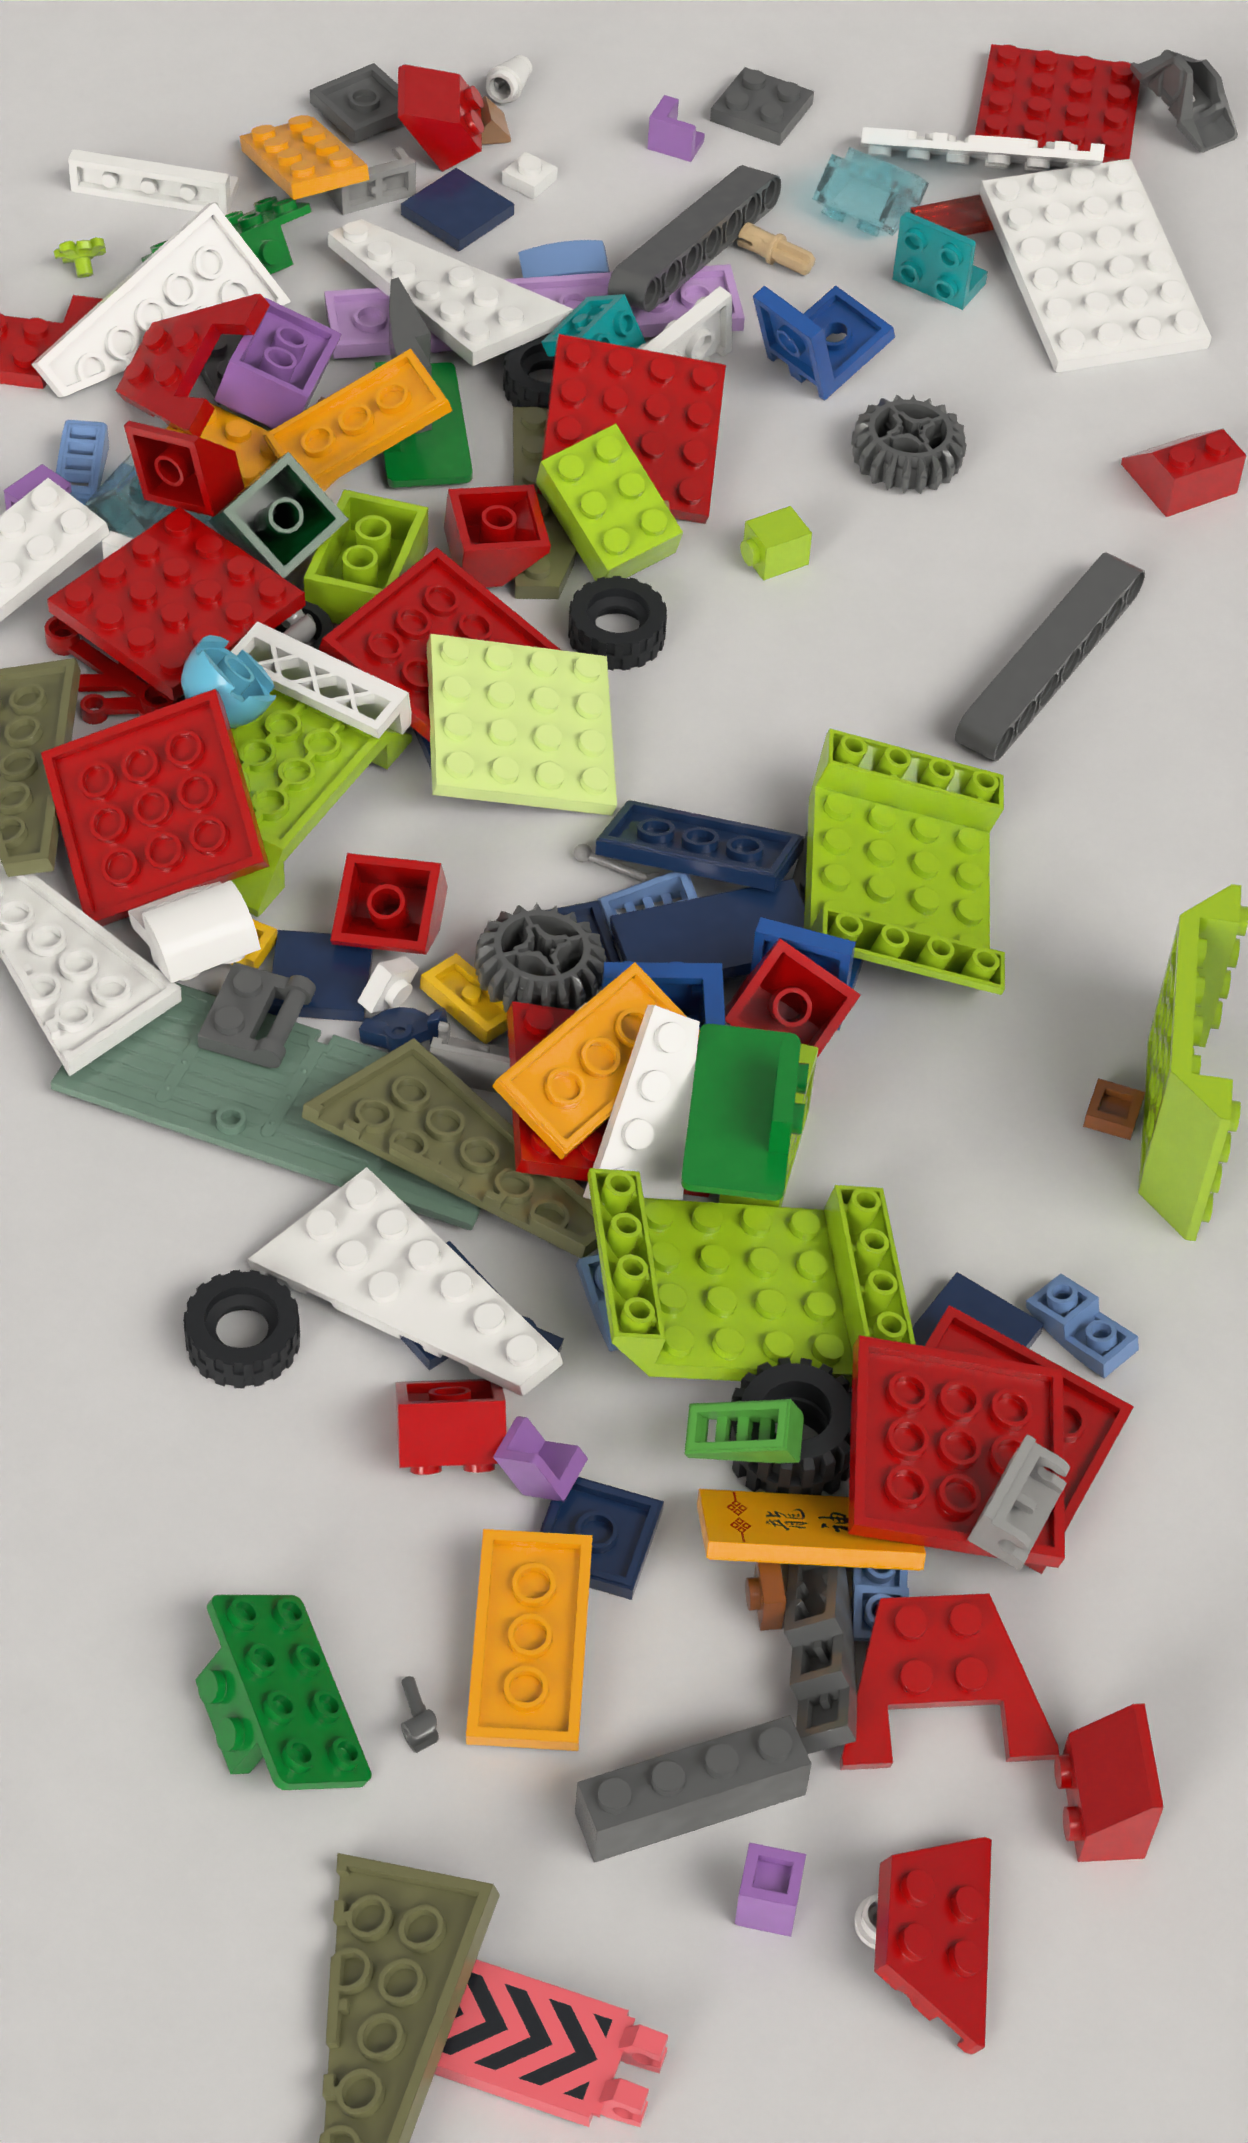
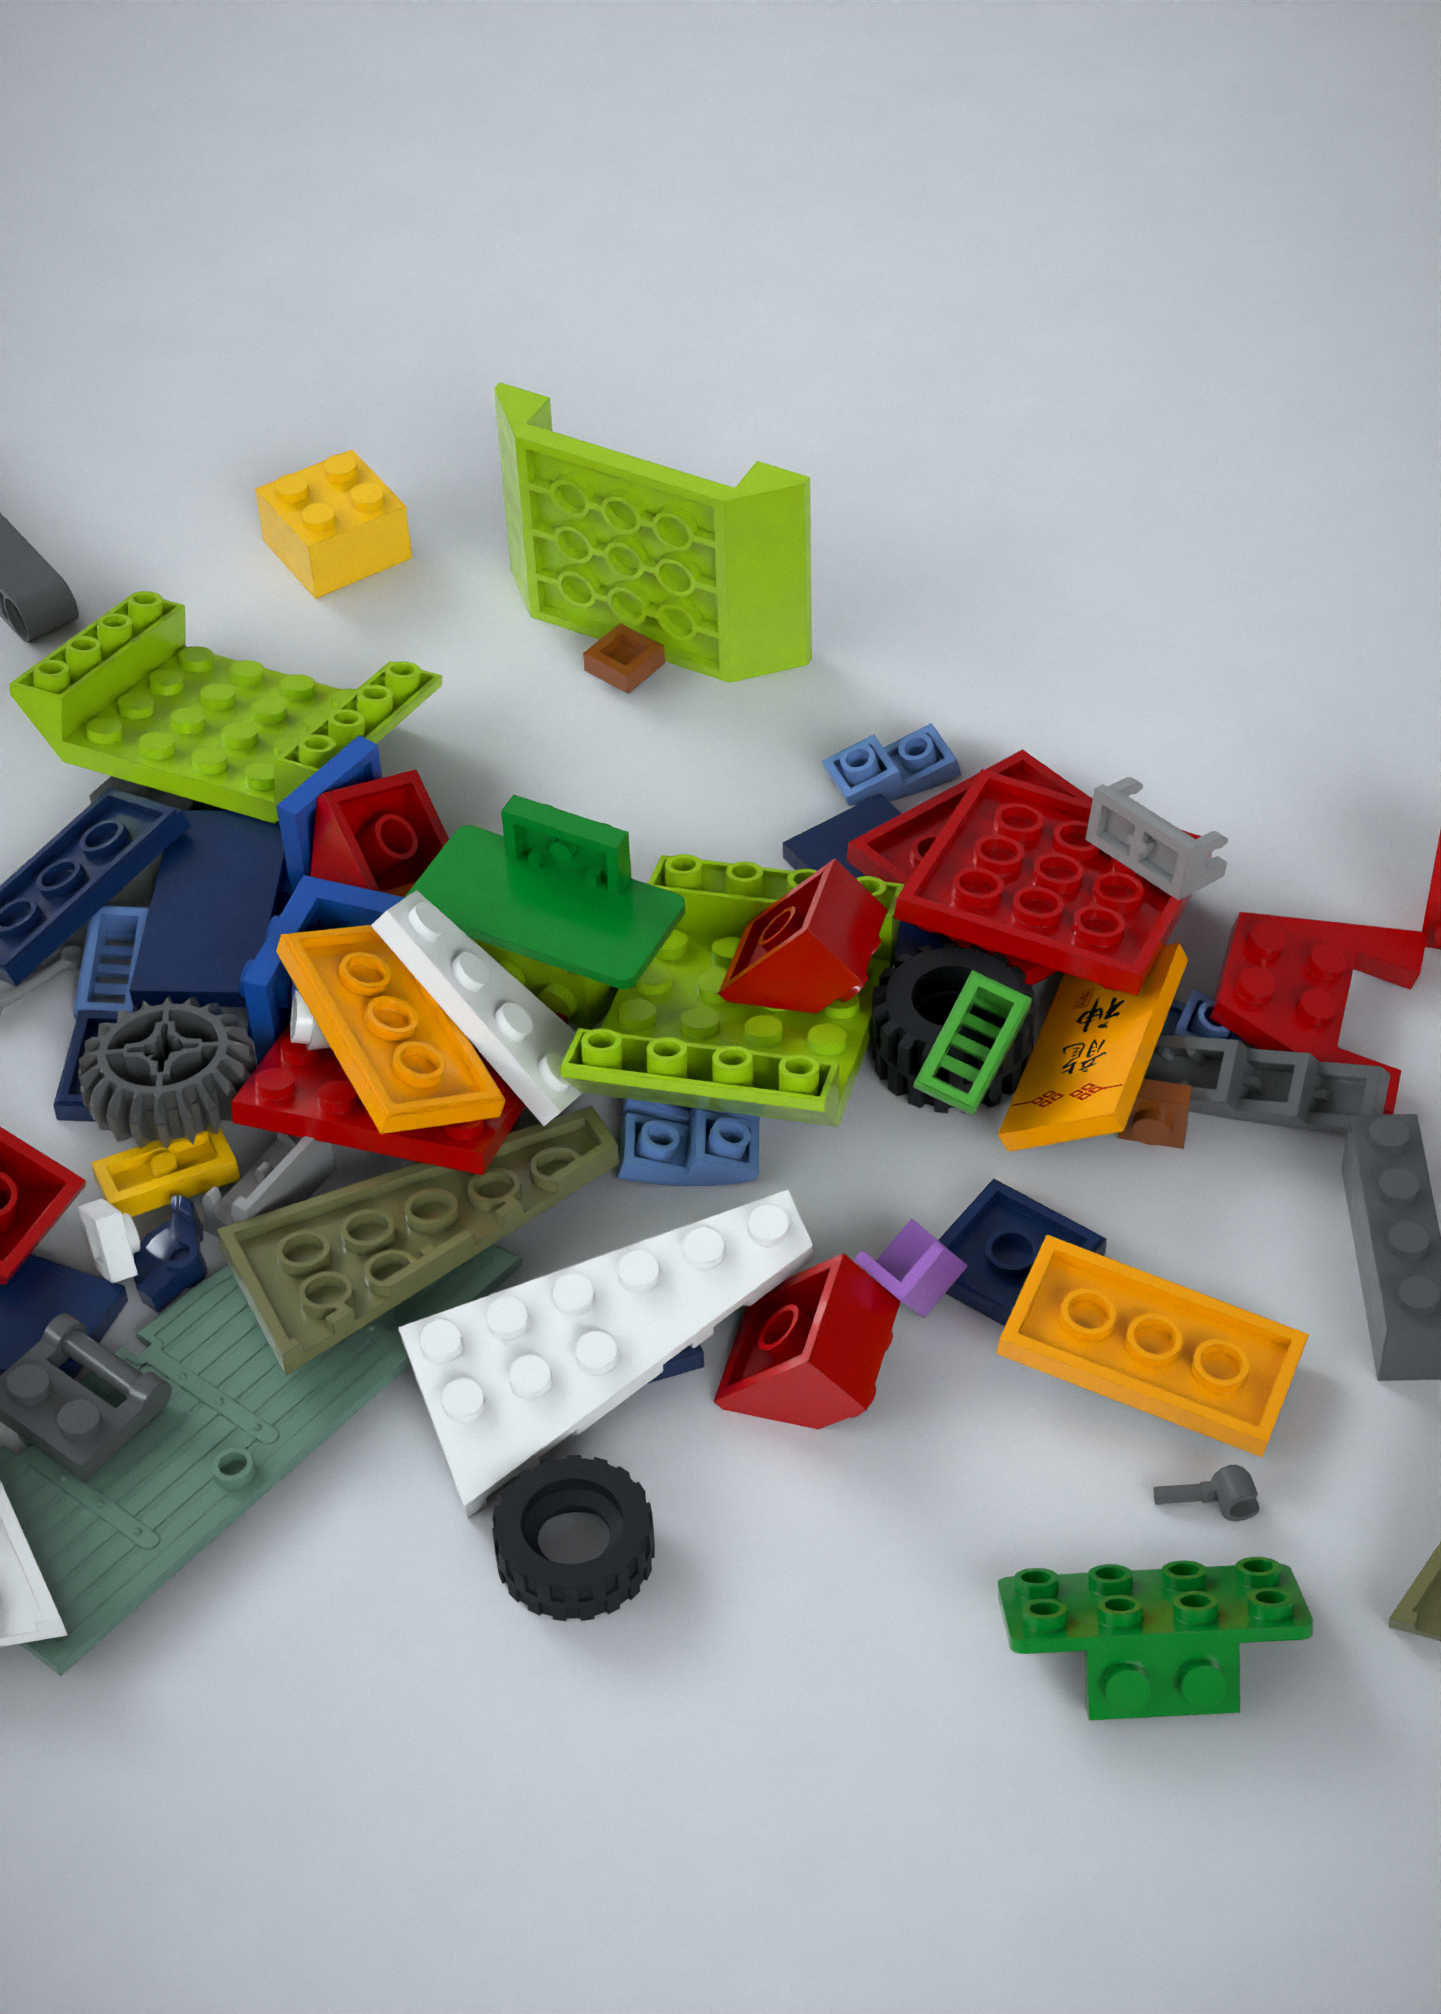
camera: 65 degrees left, 5 degrees down
(808, 1303) = (807, 945): none -> red slope
(1163, 871) = (334, 523): none -> yellow brick

